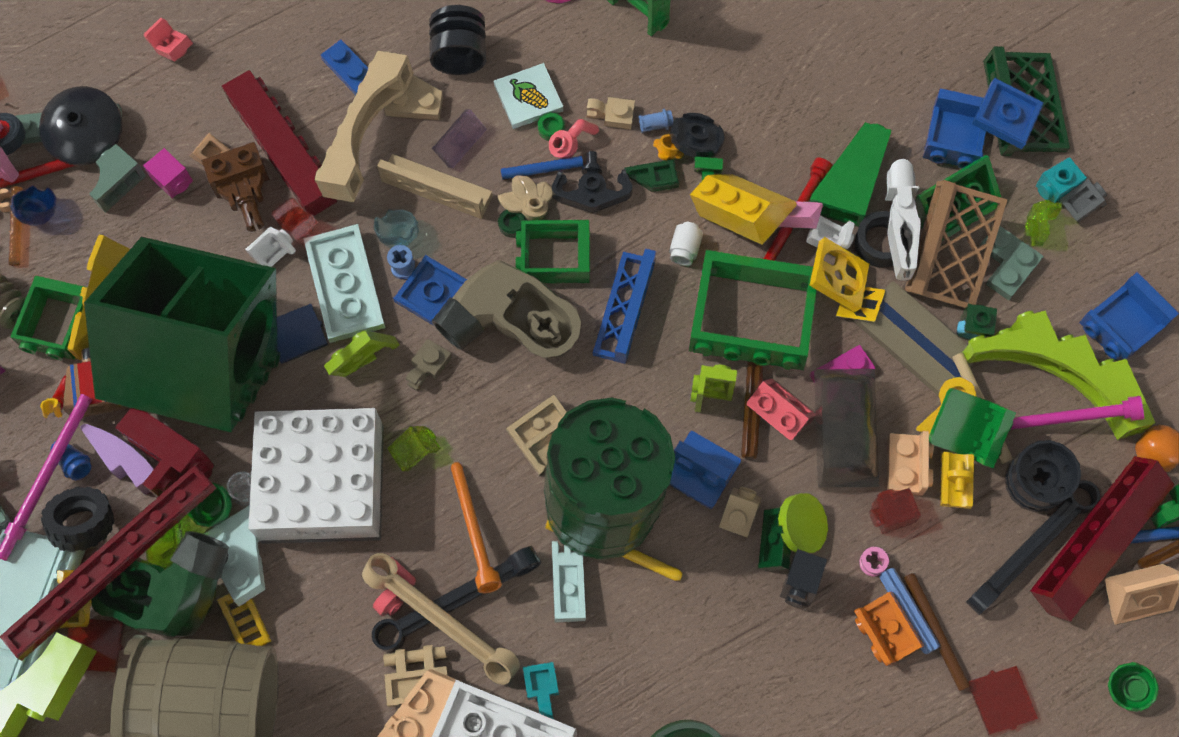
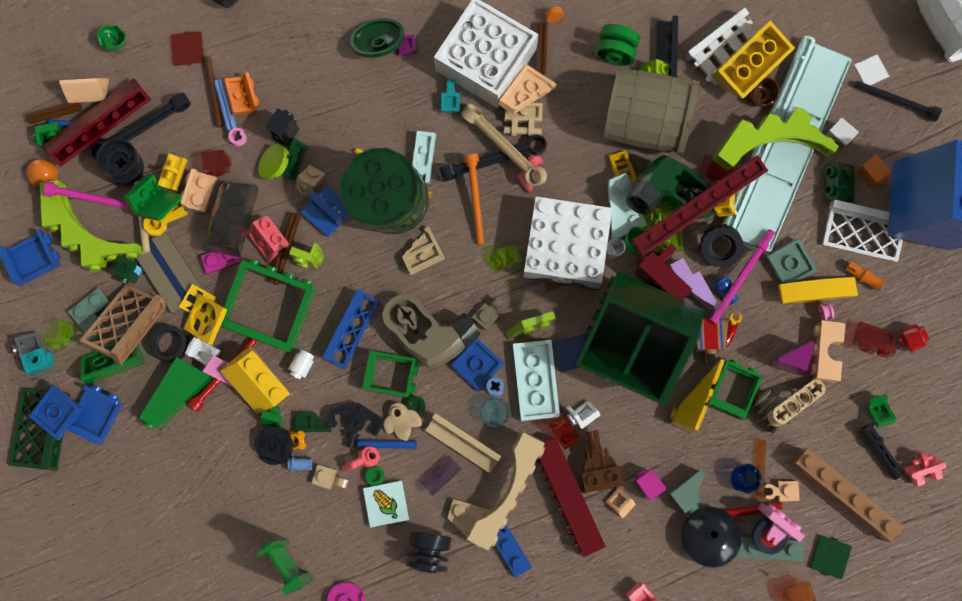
camera: 170 degrees left, 10 degrees up
(903, 214) = (152, 345): white arm -> none

